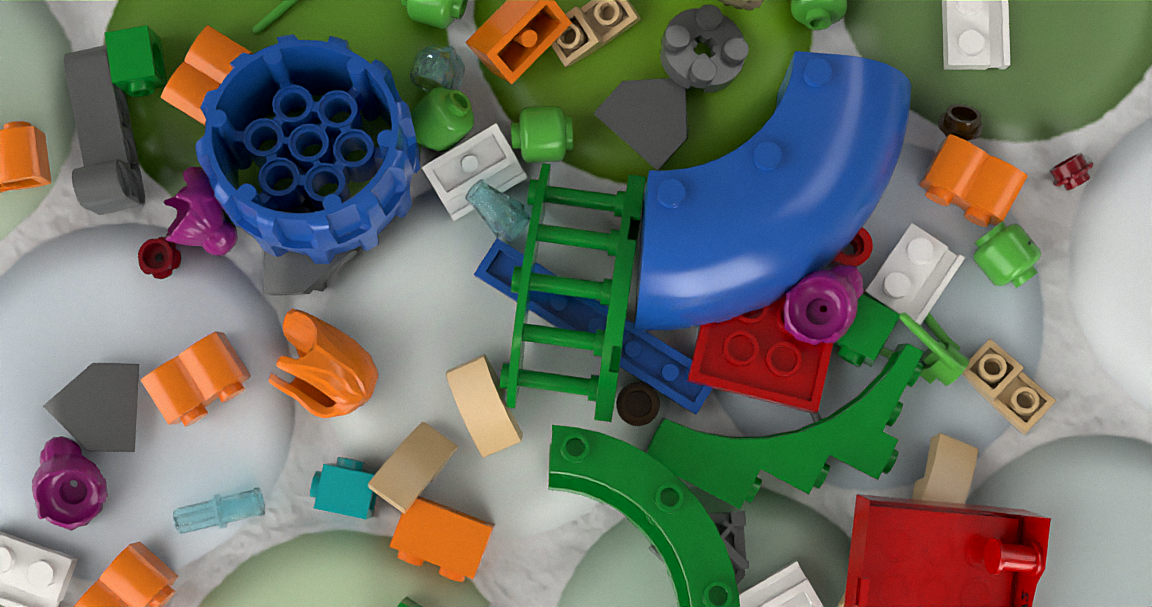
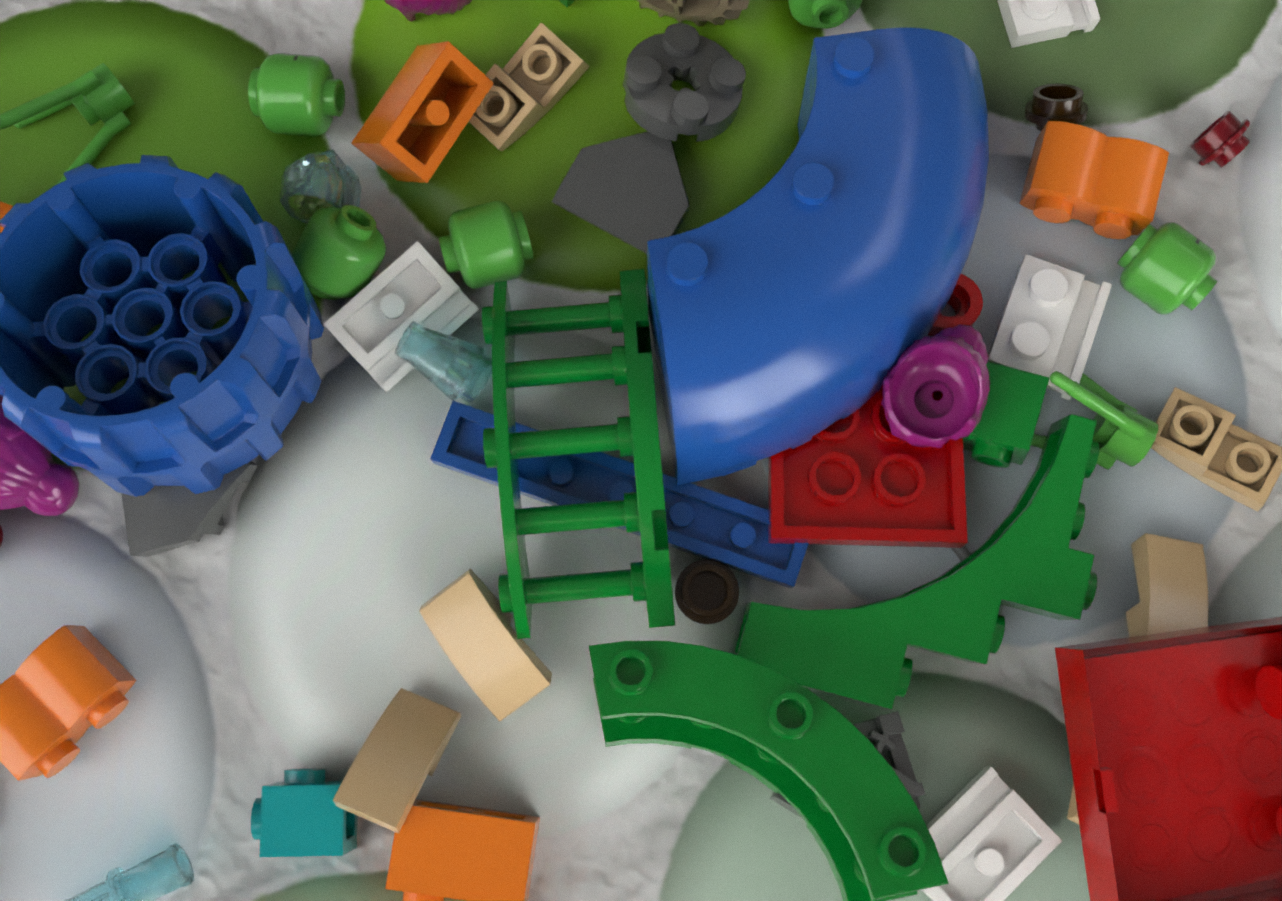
camera: 15 degrees left, 5 degrees down
(331, 369) = (247, 640): orange hair -> none

